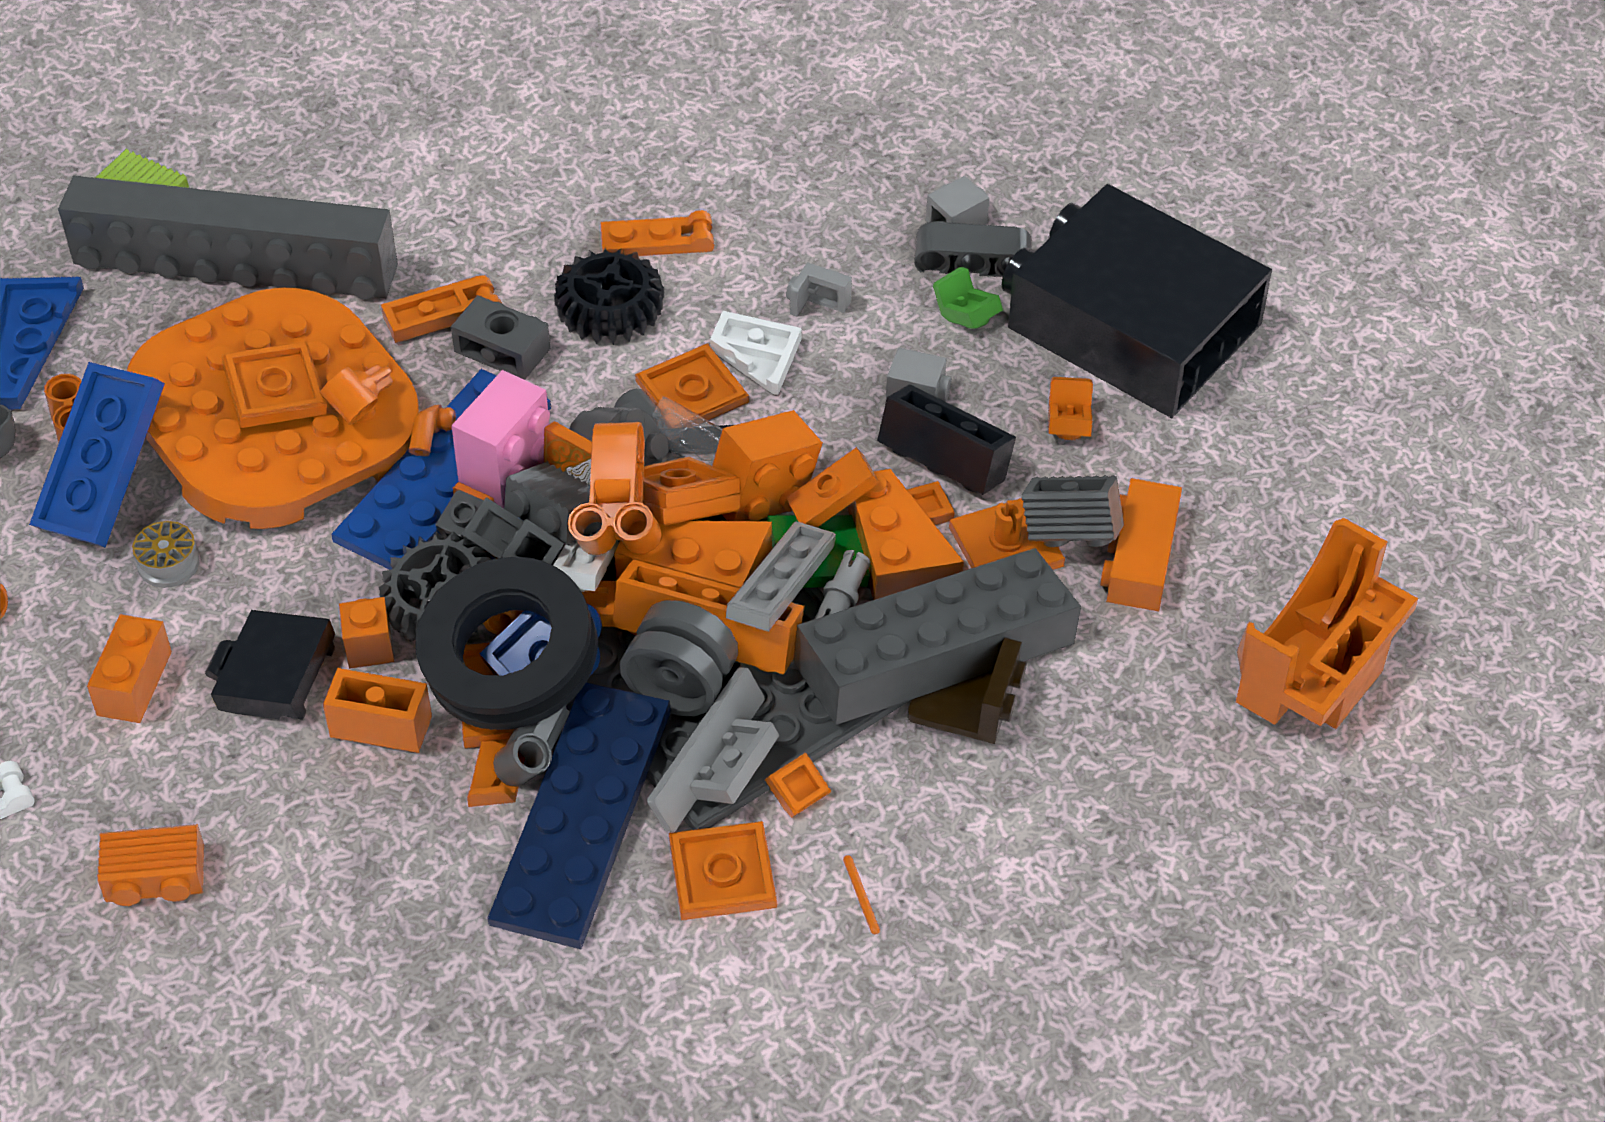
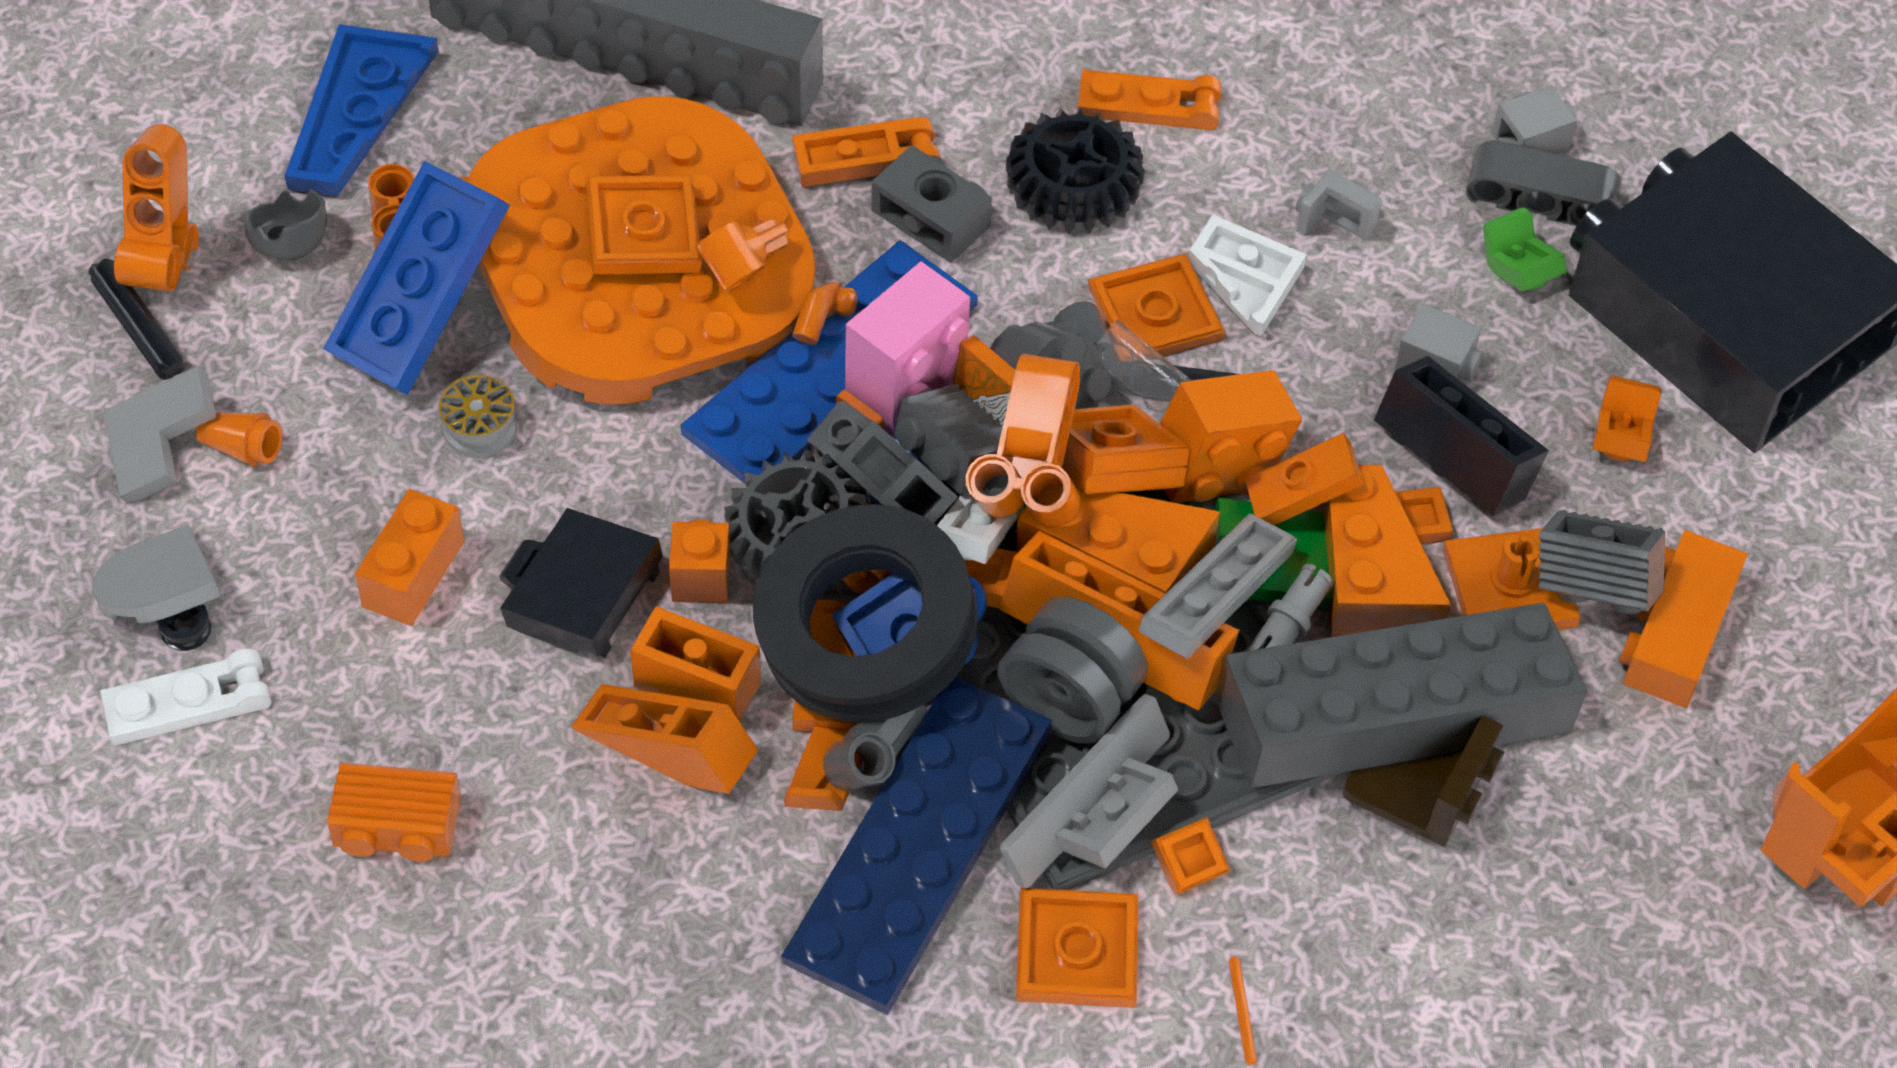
camera: 10 degrees right, 5 degrees up
(373, 767) = (675, 735): none -> orange slope

